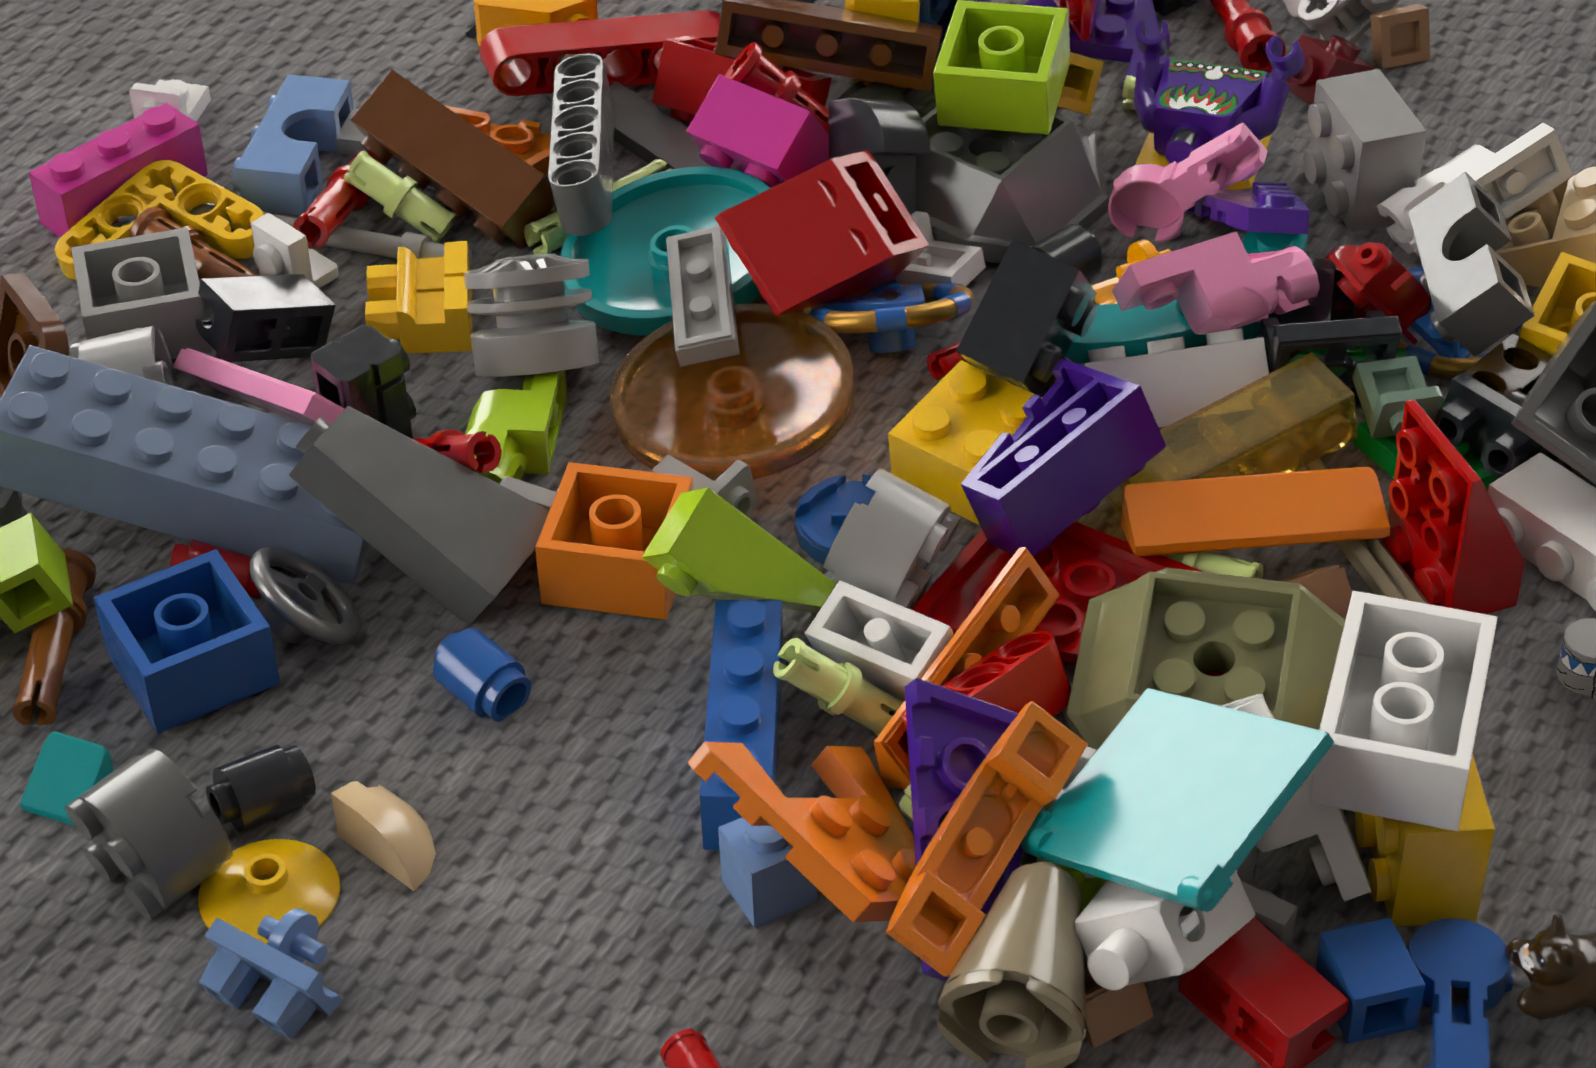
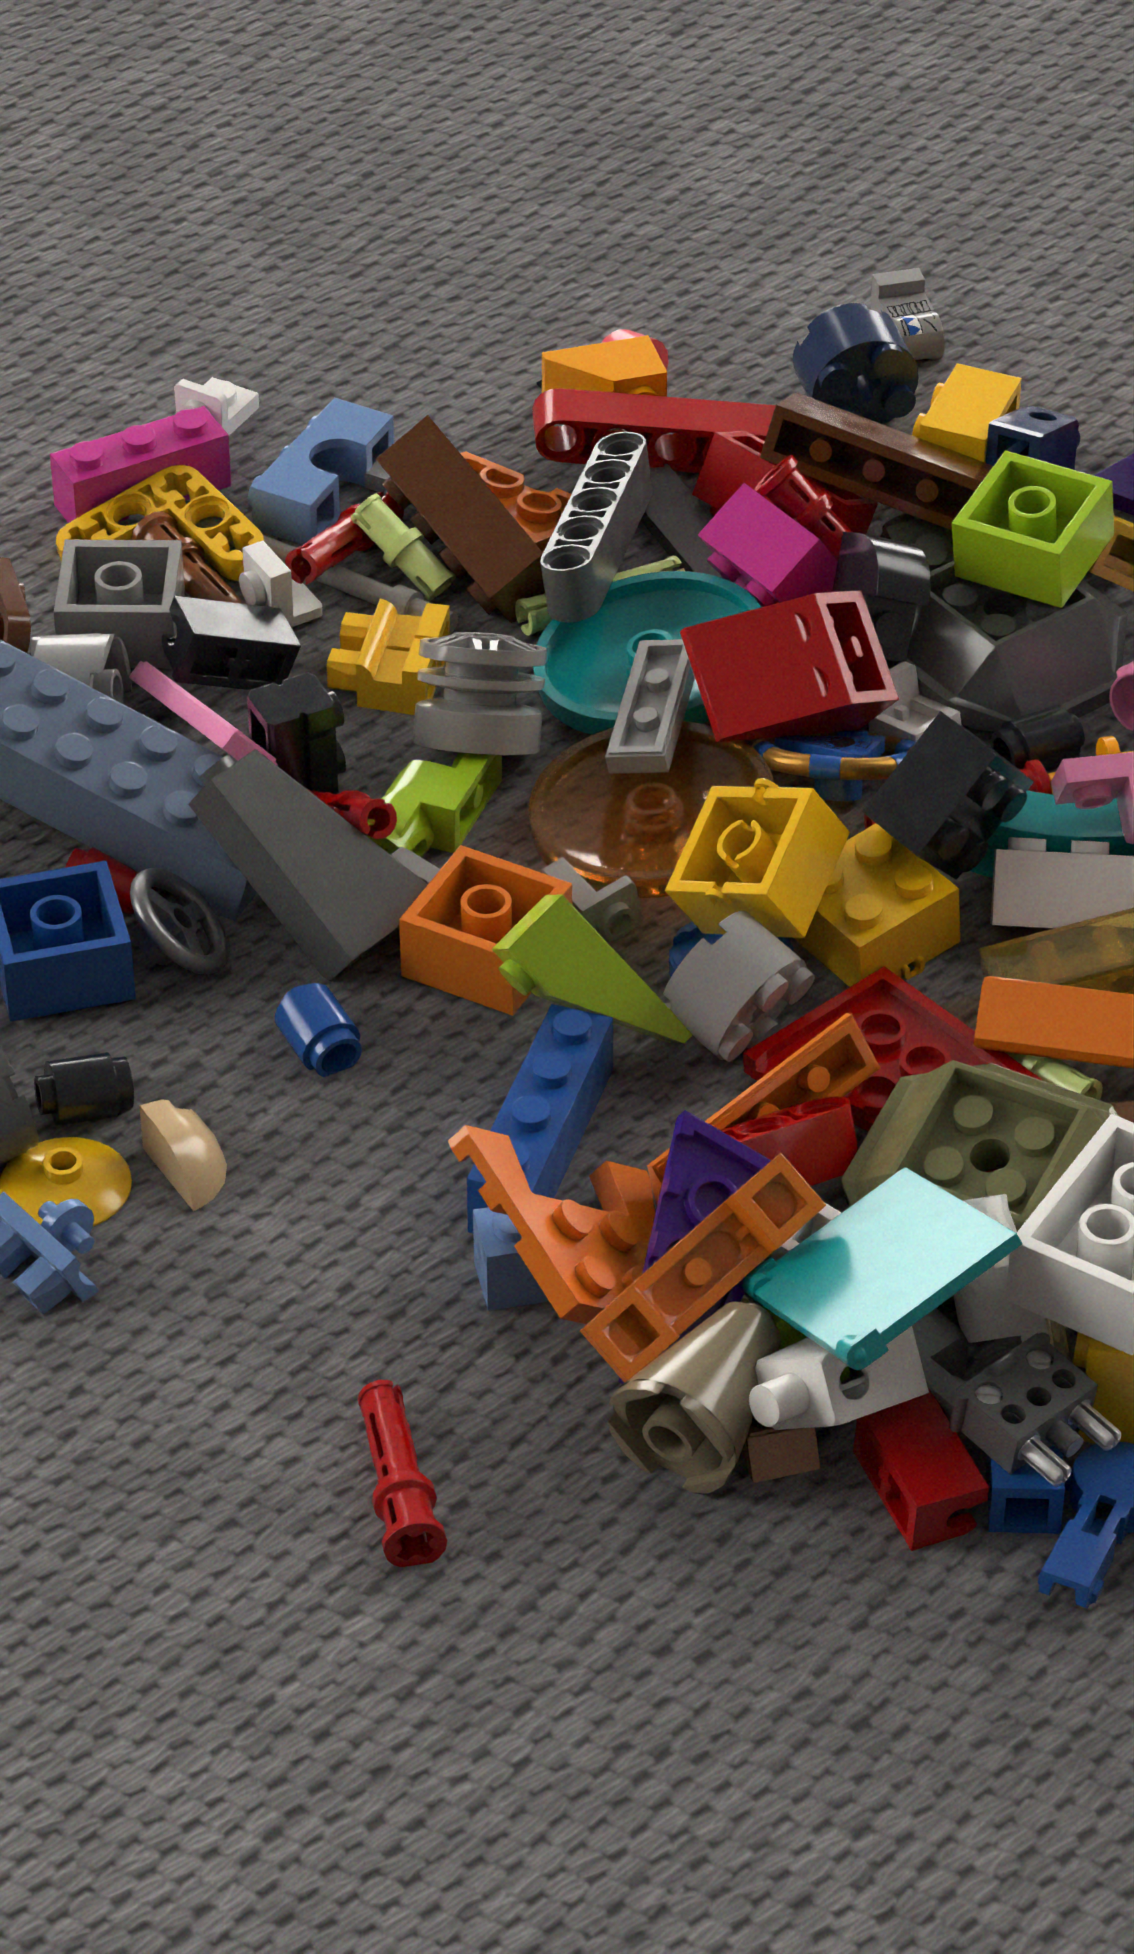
camera: 15 degrees right, 0 degrees up
(836, 686) = (636, 1108): yellowish green pin -> none
(870, 415) = (759, 856): none -> yellow brick
(877, 637) = (686, 1069): white brick -> none
(1062, 458) = (929, 940): dark purple wedge -> none
(1363, 903) = (1029, 1404): none -> dark grey piece

